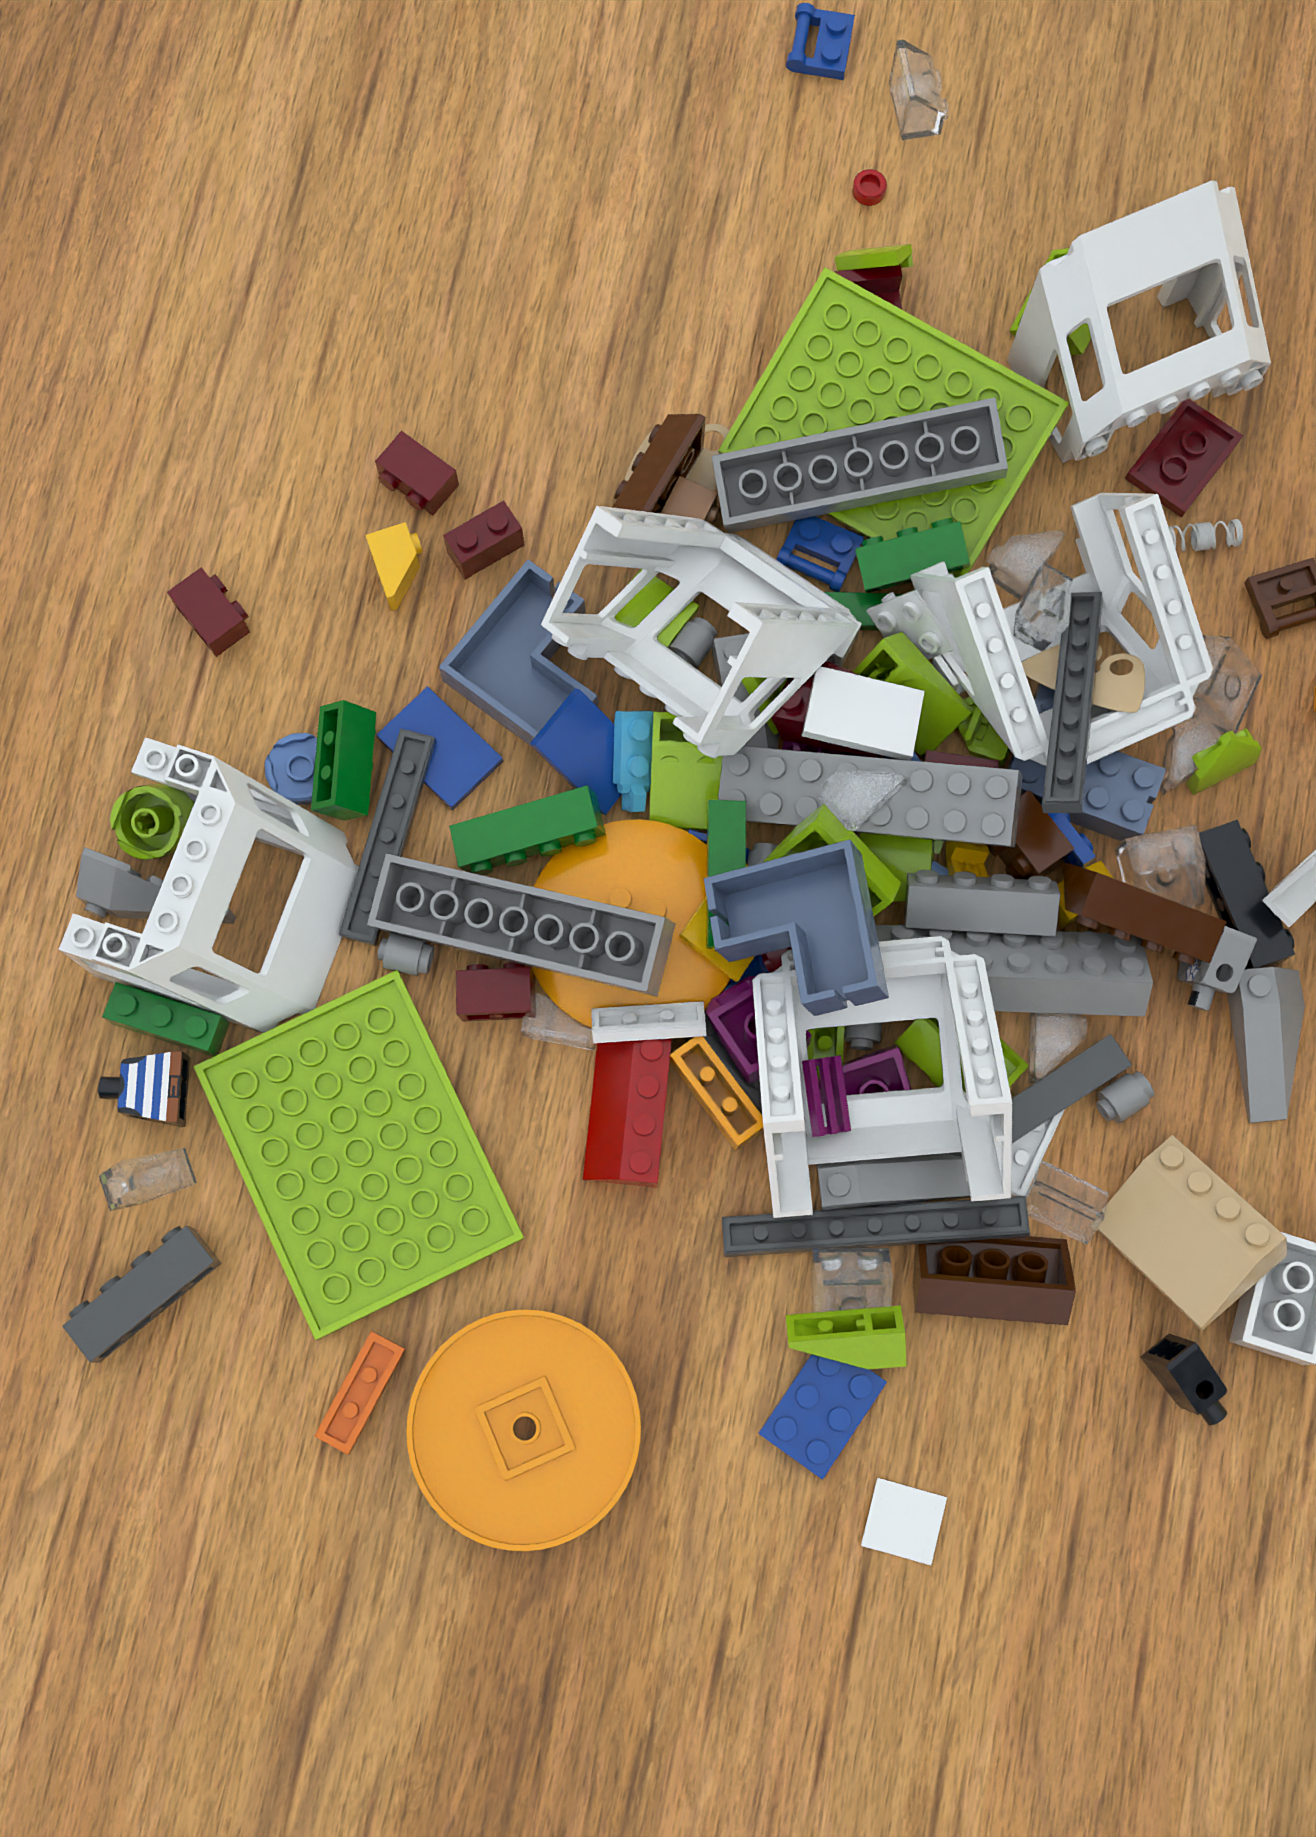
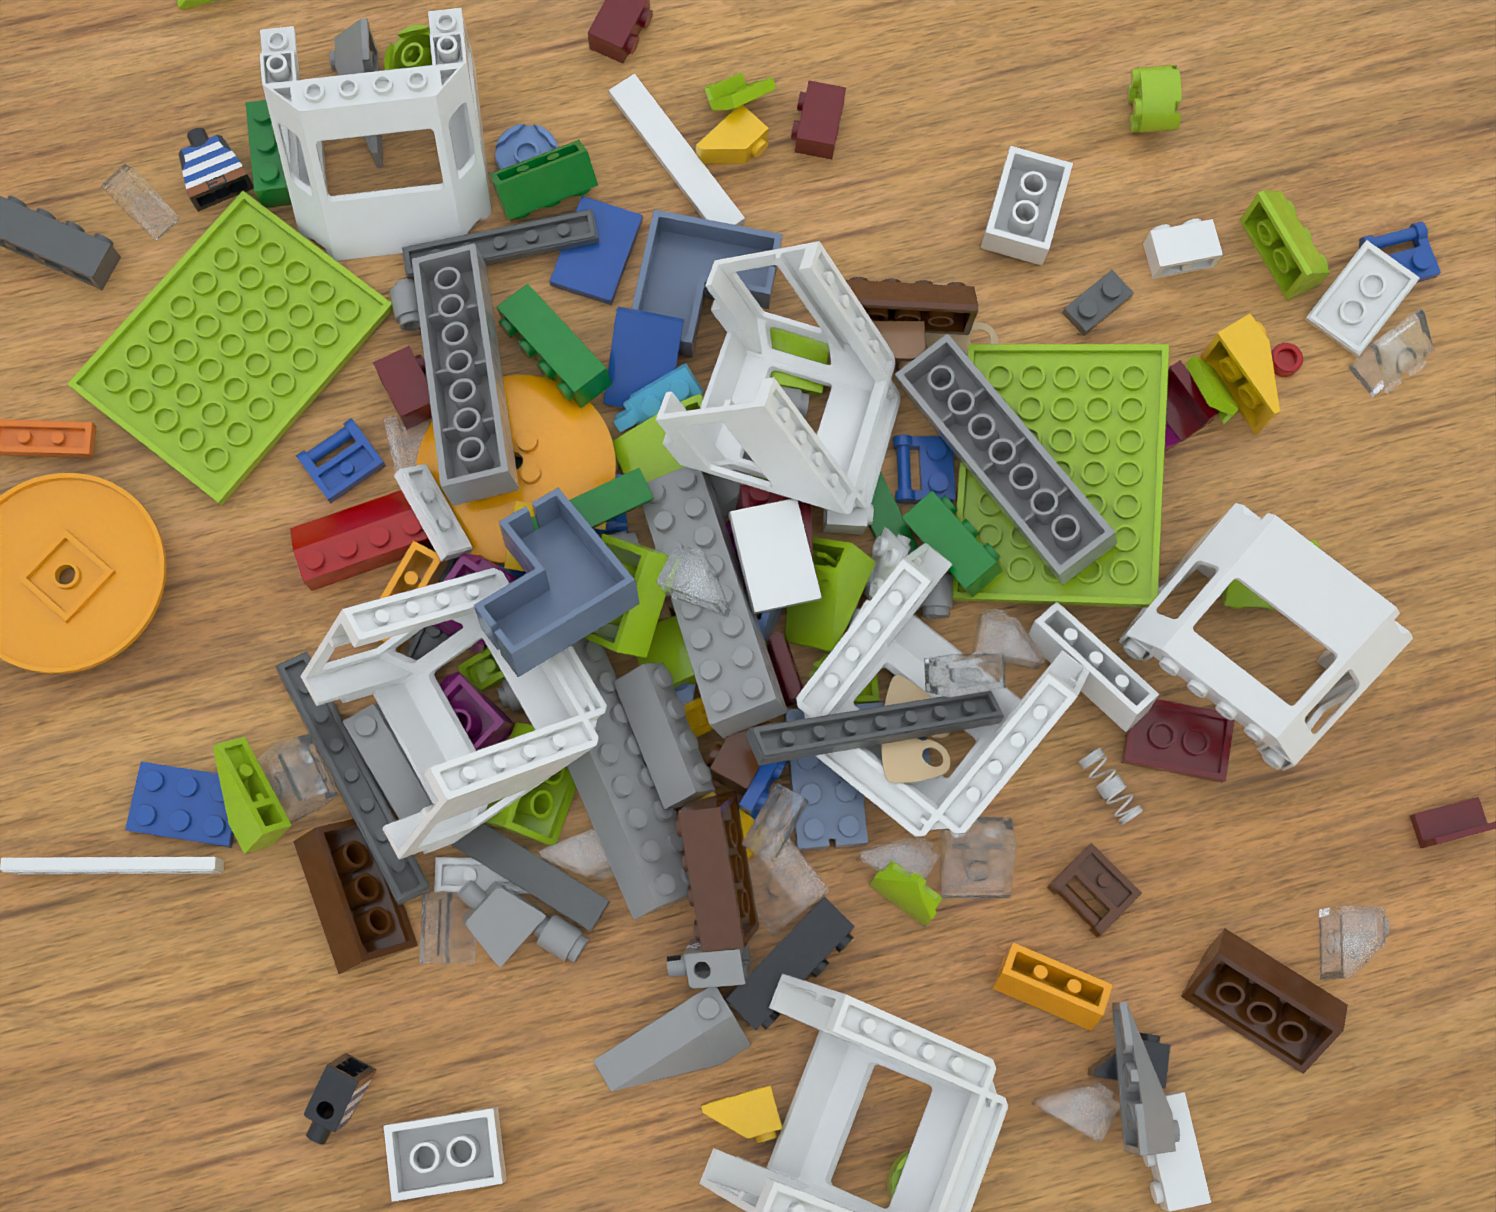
camera: 60 degrees right, 0 degrees up
(350, 538) = (735, 92): none -> lime slope
(376, 626) = (674, 152): none -> white tile
(484, 539) = (788, 197): dark red brick -> none
(549, 1095) = (347, 467): none -> blue plate
(562, 163) = (1155, 98): none -> lime brick
(608, 329) = (1026, 205): none -> white brick
(719, 217) = (1182, 248): none -> white brick
(731, 318) = (1097, 302): none -> dark grey plate
(763, 129) = (1284, 244): none -> lime slope
(831, 1095) = (410, 697): magenta tile -> none
(847, 92) = (1362, 298): none -> white tile
(854, 1508) = (112, 865): none -> white tile
(872, 217) = (1246, 366): none -> yellow slope
(904, 1521) = (121, 913): white sticker -> none
(1048, 504) = (1110, 680): none -> white brick
(1083, 1144) = (499, 918): none -> light grey torso
(1112, 841) = (774, 823): none -> clear panel
(1190, 1233) = (459, 1041): tan slope -> none

